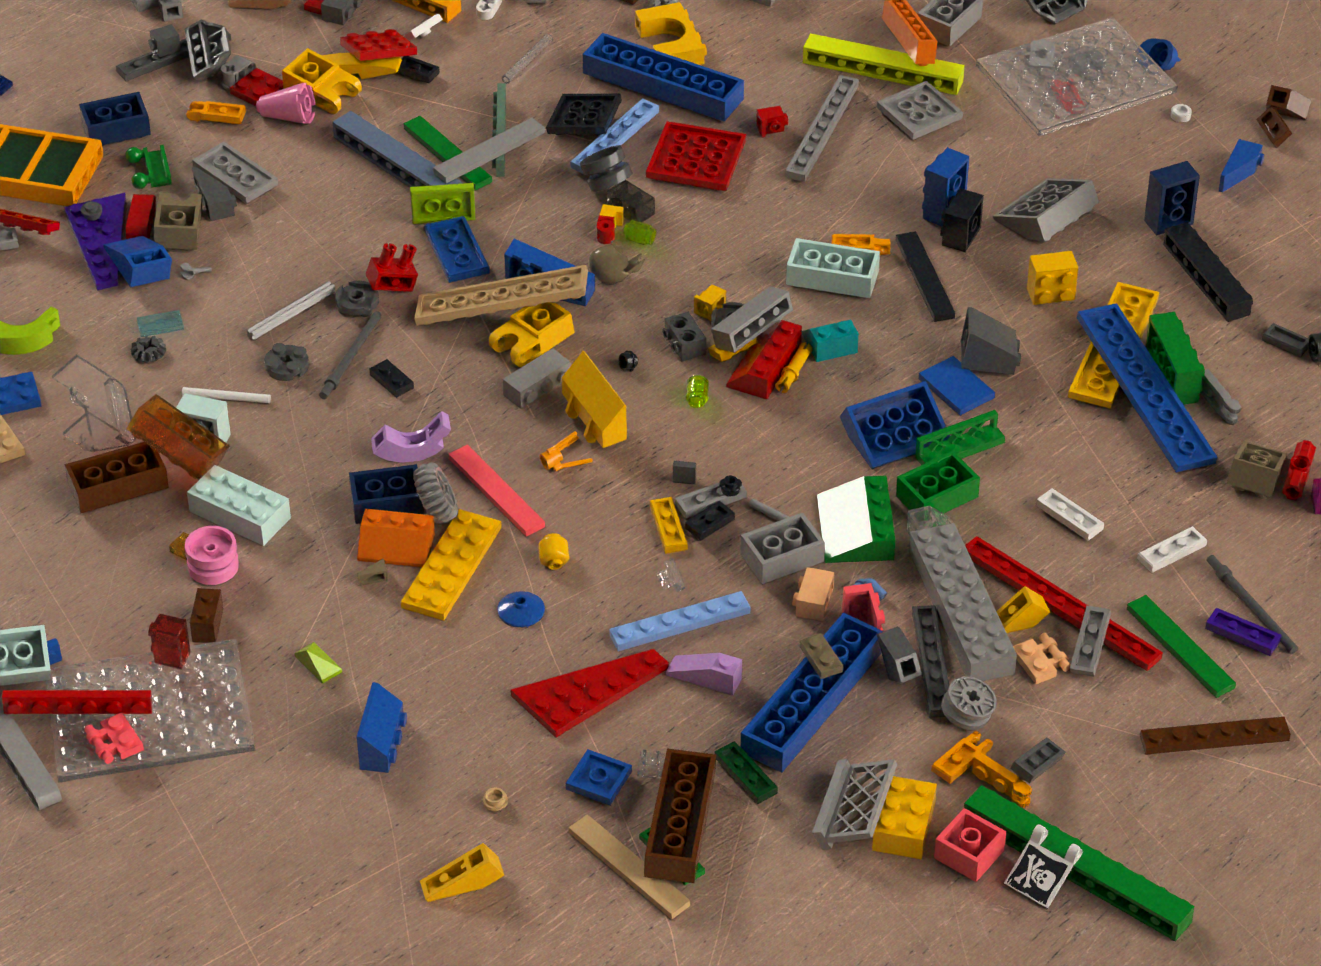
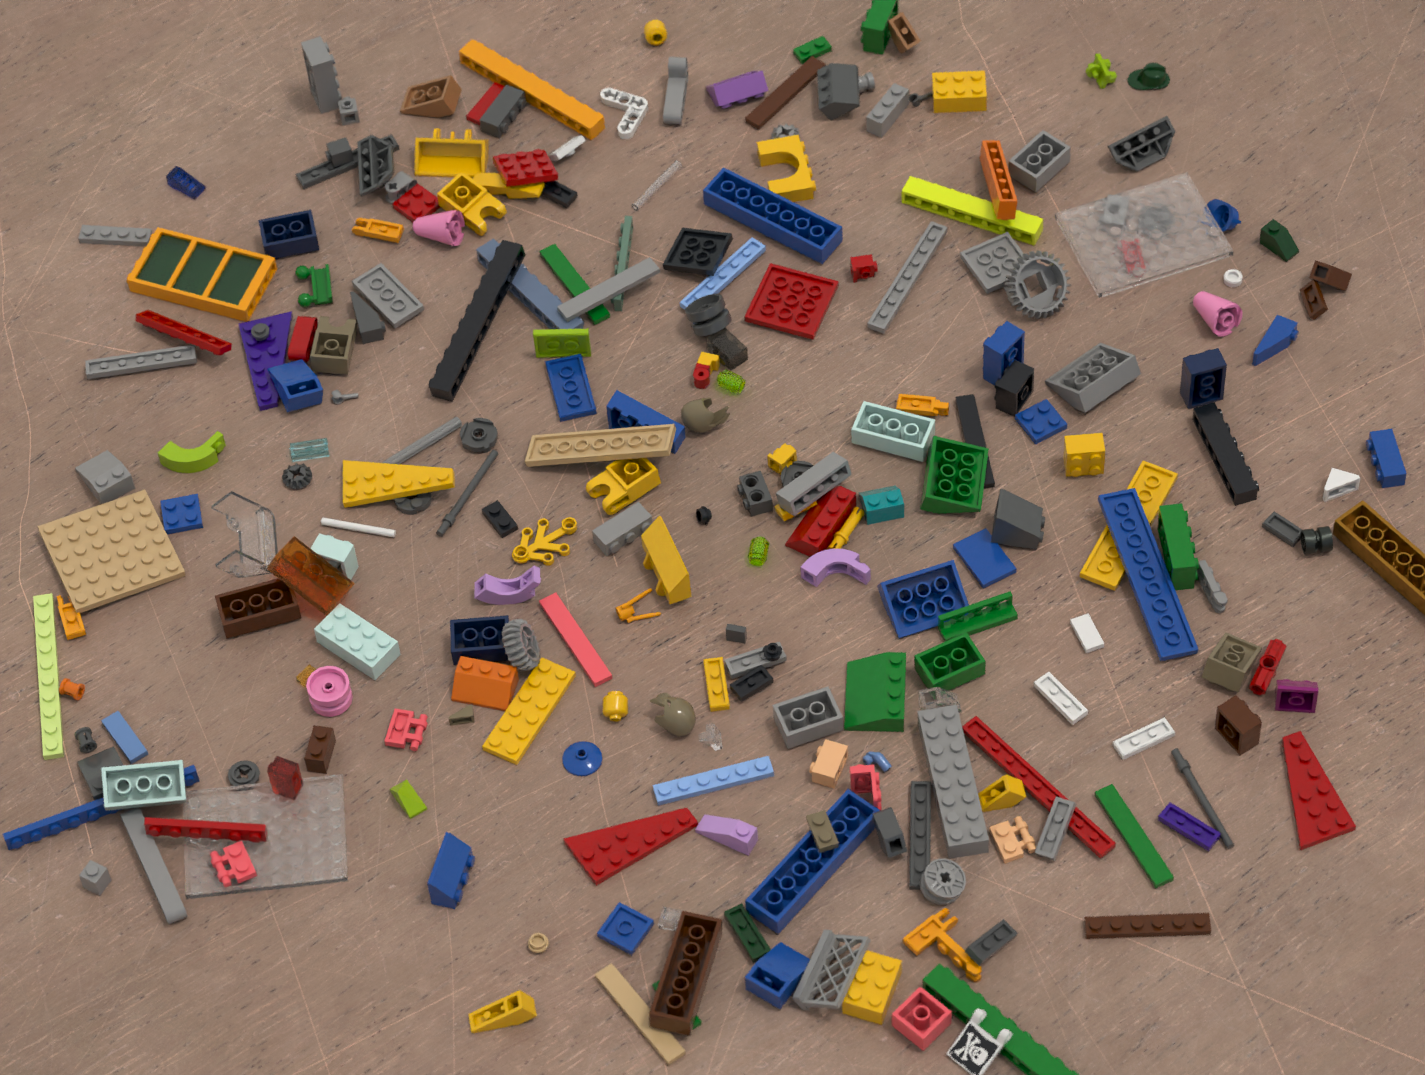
camera: 10 degrees right, 10 degrees up
(116, 641) = (245, 767): none -> dark grey gear
(243, 348) = (383, 481): none -> yellow wing
(286, 39) = (450, 155): none -> yellow piece
(300, 588) = (400, 727): none -> coral plate
(341, 187) = (476, 320): none -> black brick
(393, 273) = (511, 413): red brick -> none
(423, 409) = (543, 543): none -> yellow plant
(631, 555) = (678, 718): none -> dark tan helmet
(767, 510) = (806, 678): light grey bar -> none
(787, 813) = (776, 974): none -> blue slope
(788, 396) = (834, 561): none -> lavender arch
(908, 307) = (953, 477): none -> green slope
(979, 118) = (1048, 277): none -> light grey piece
(995, 254) = (1041, 421): none -> blue plate
(1087, 450) = (1087, 633): none -> white tile
(1173, 141) = (1218, 312): none -> bright pink cone
(1224, 75) = (1278, 240): none -> dark green slope
(1279, 525) = (1238, 725): none -> reddish brown brick

